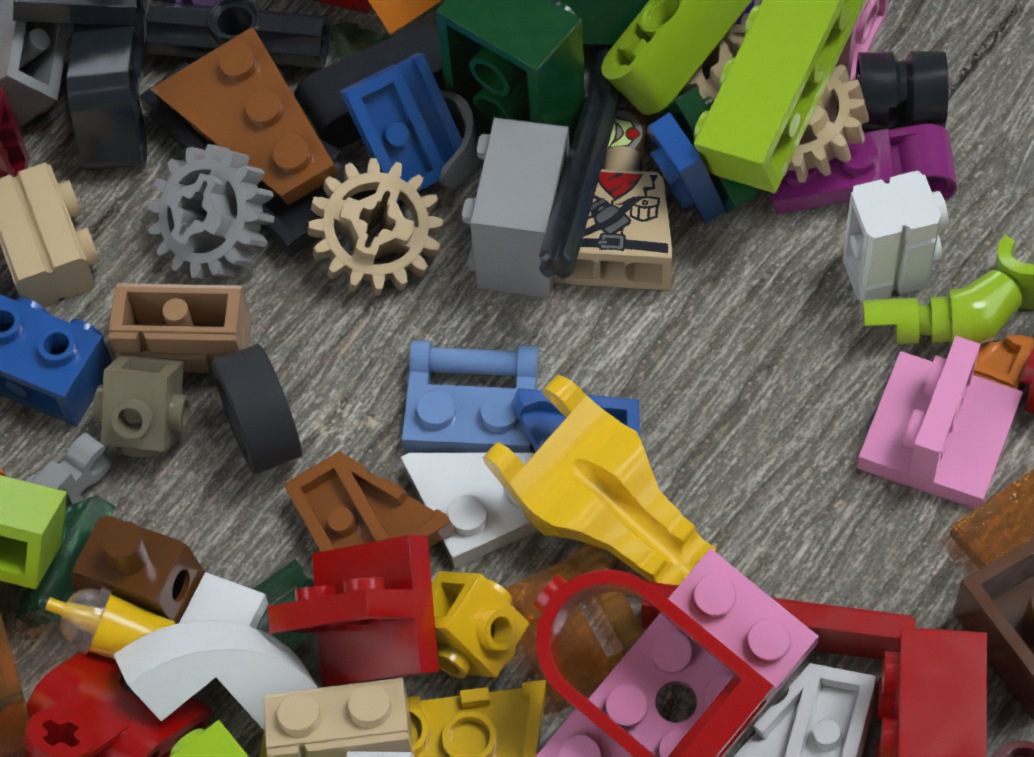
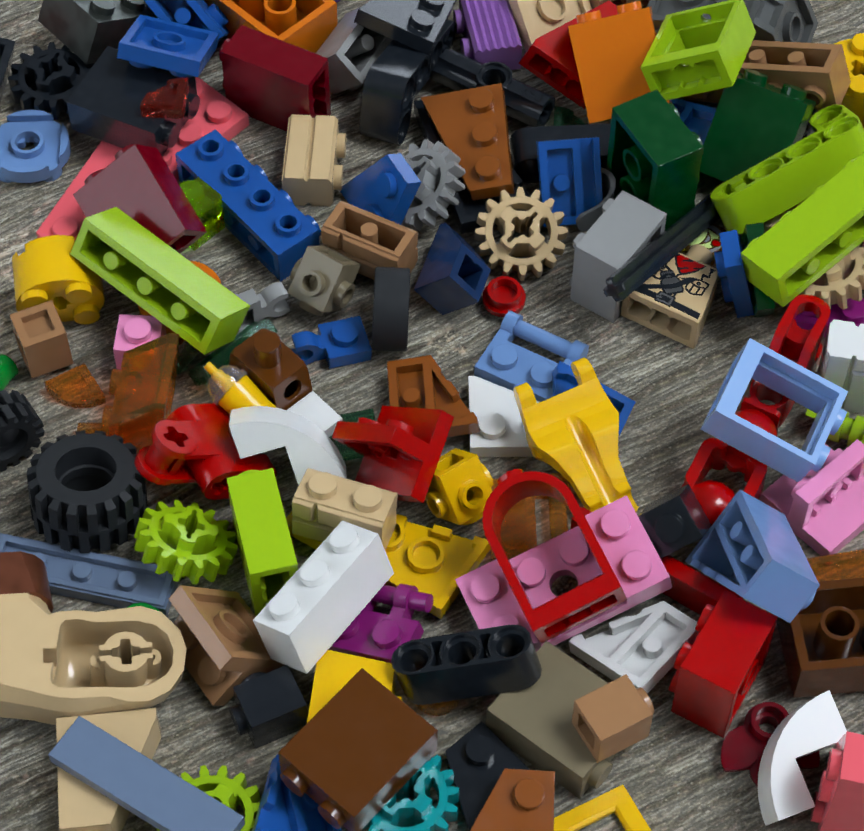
camera: 20 degrees right, 5 degrees down
(164, 242) = (384, 188): none -> blue wing
(199, 483) = (337, 341): none -> blue plate
(310, 320) = (451, 273): none -> dark blue slope
(392, 324) = (503, 295): none -> red plate
(776, 342) = (791, 381): none -> light blue window
(782, 552) = (674, 521): none -> black brick
(810, 382) = (793, 343): none -> red piece
(919, 562) = (757, 557): none -> medium blue wedge

